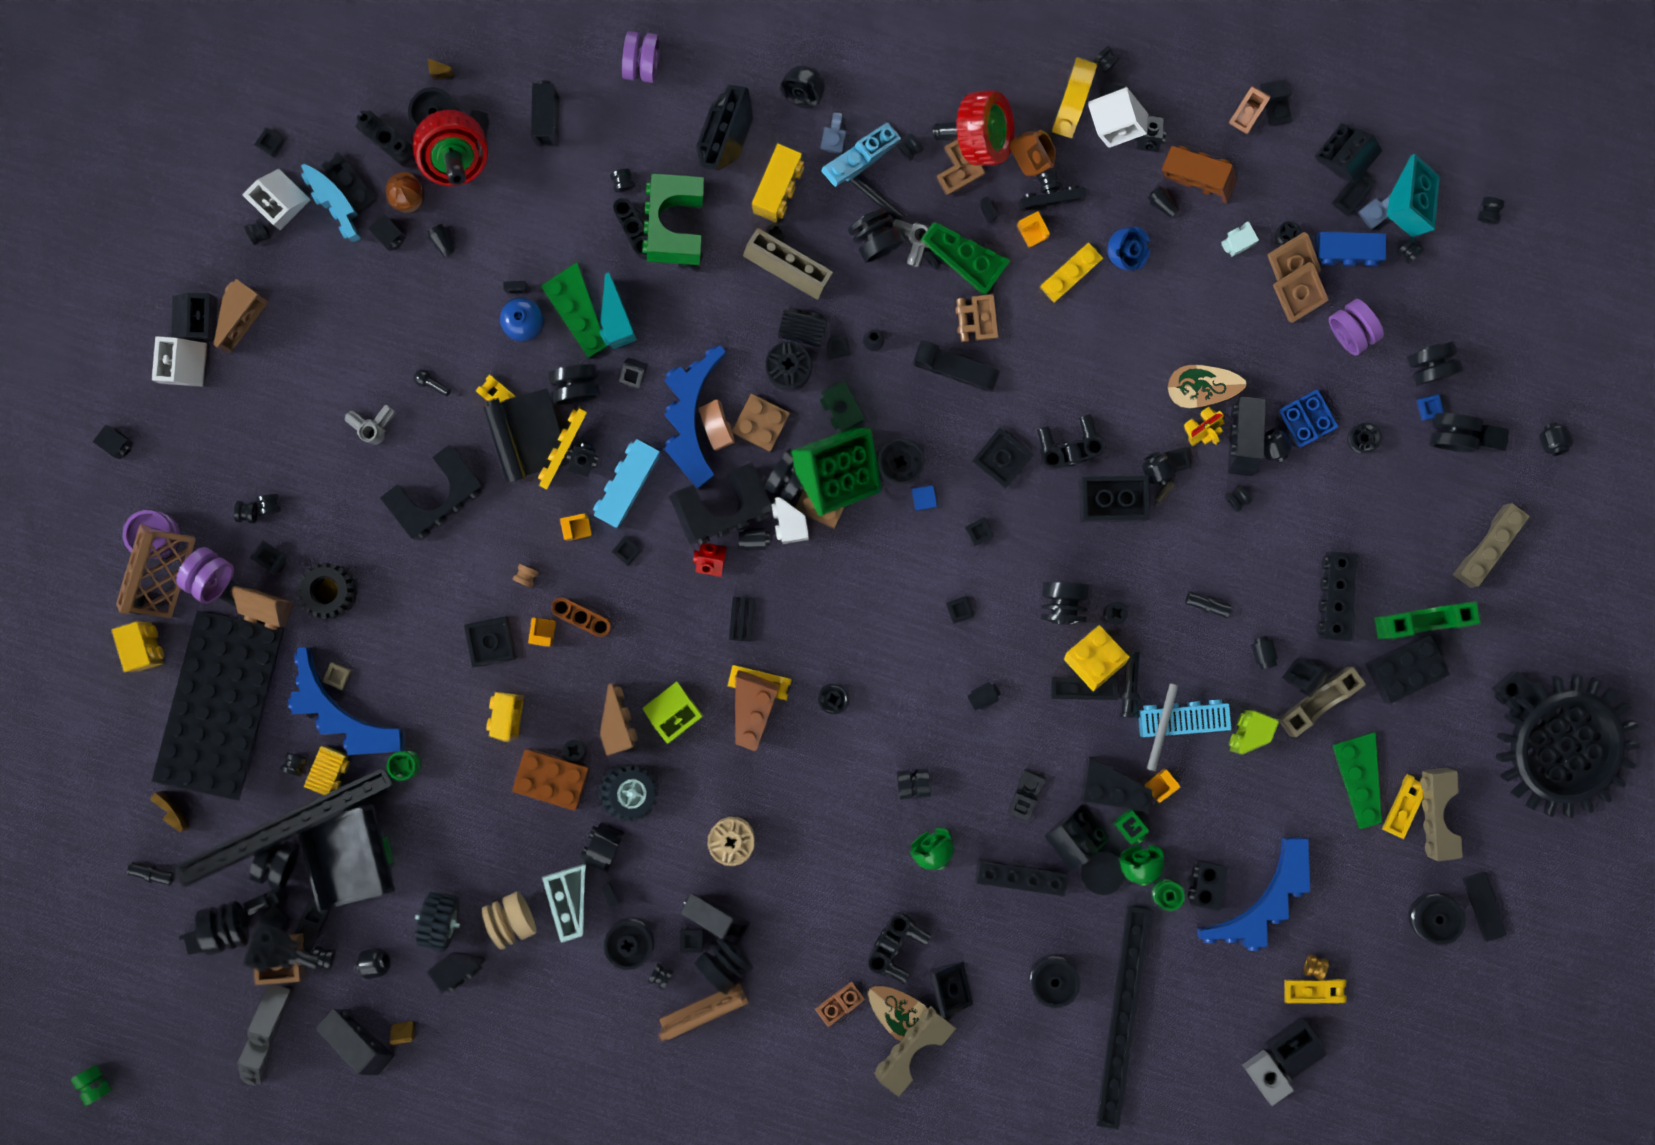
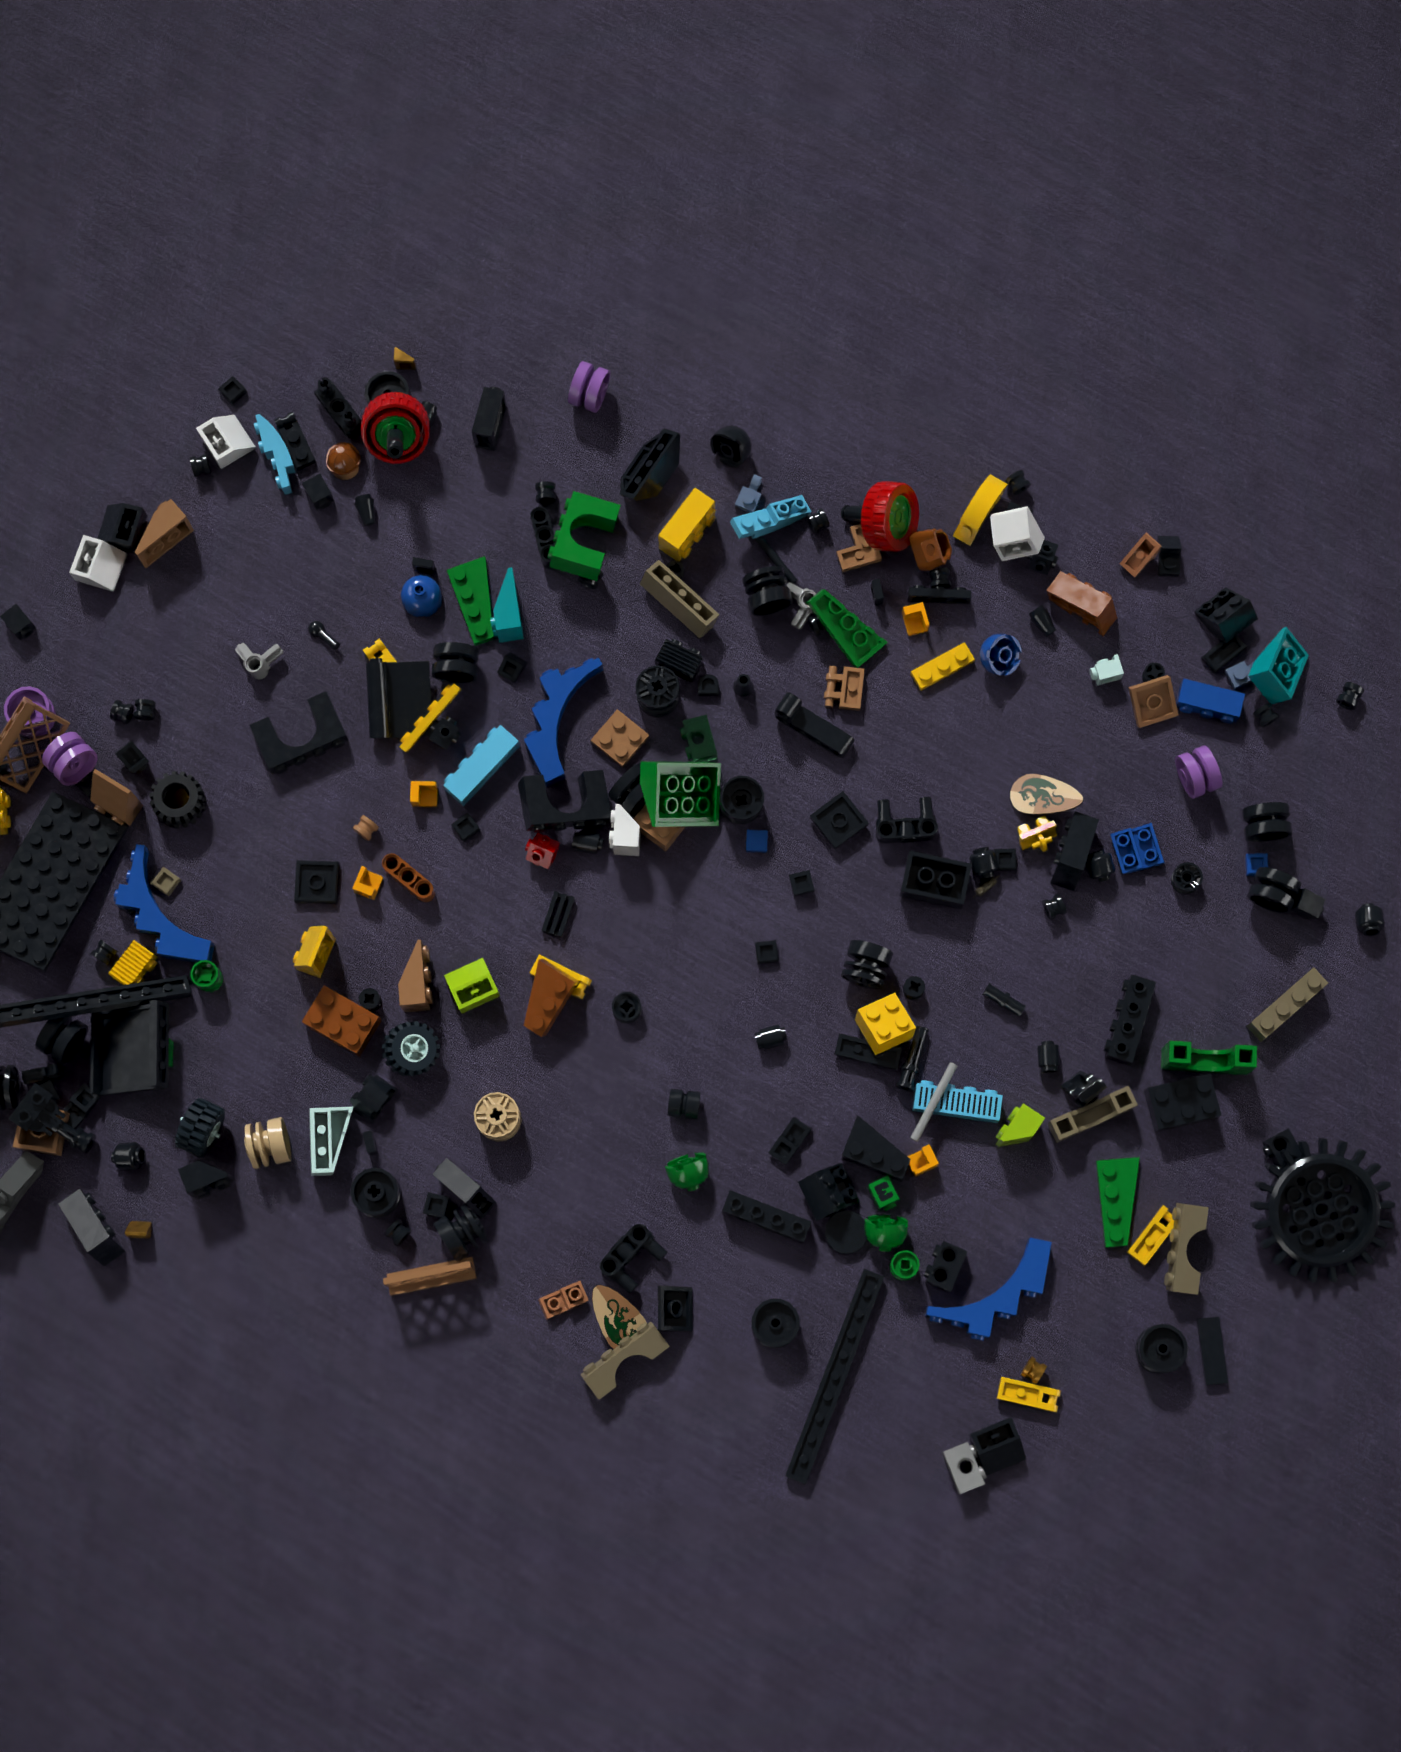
camera: 15 degrees right, 10 degrees down
(716, 426) = (577, 730): nougat slope -> none
(1300, 292) = (1153, 730): medium nougat plate -> none

